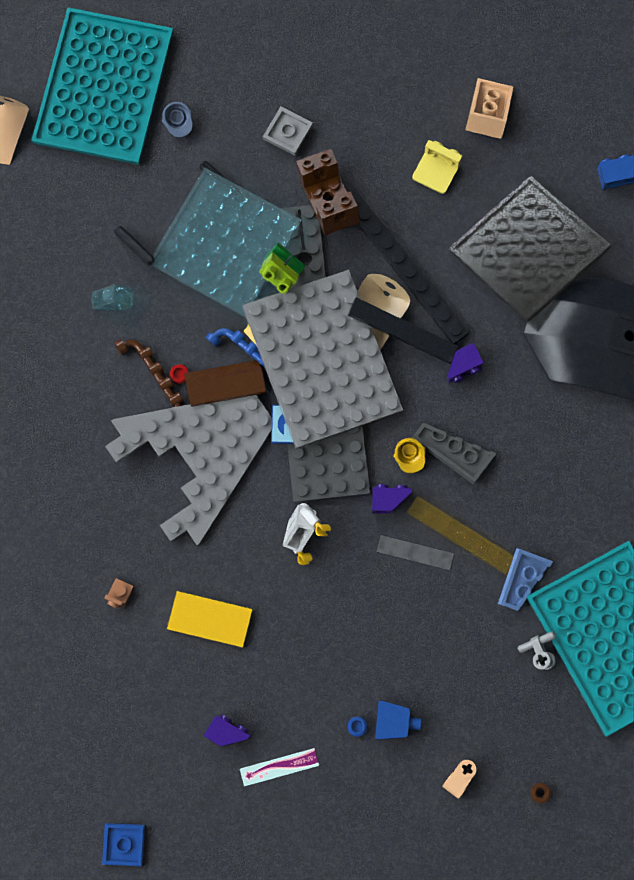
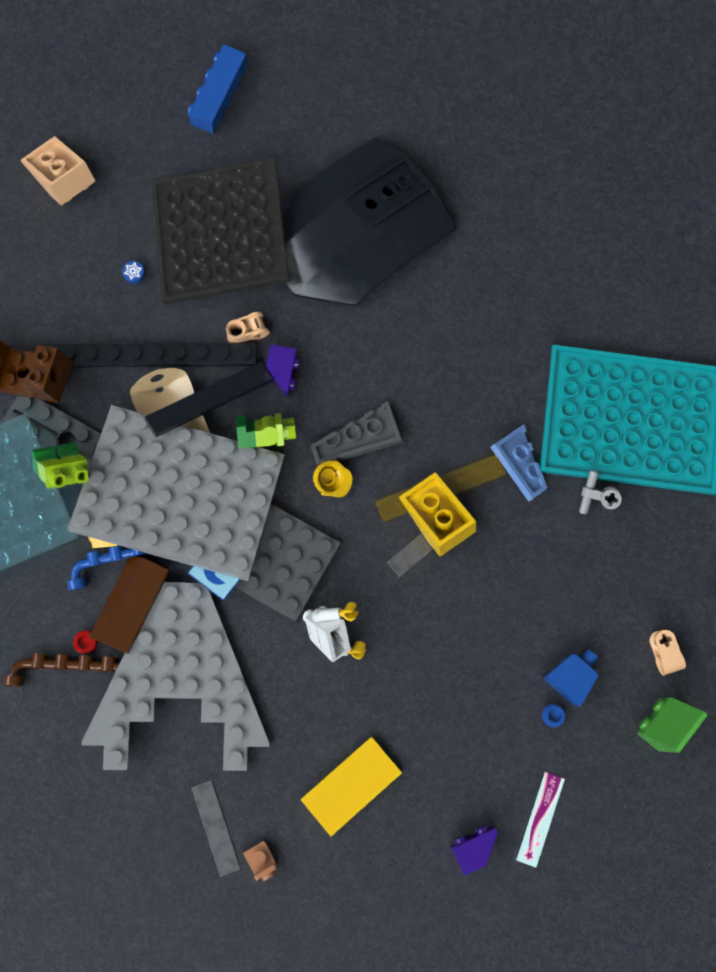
camera: 70 degrees left, 0 degrees up
(119, 549) = (215, 828): none -> flat silver sticker
(387, 500) = (359, 530): dark purple slope -> none
(407, 383) = (264, 431): none -> lime hips
(408, 810) = (670, 724): none -> bright green slope
(437, 167) = (75, 255): light yellow bracket -> none
(439, 545) = (438, 514): none -> yellow slope
(456, 213) = (133, 272): none -> blue tile
(475, 320) = (248, 327): none -> light nougat piece

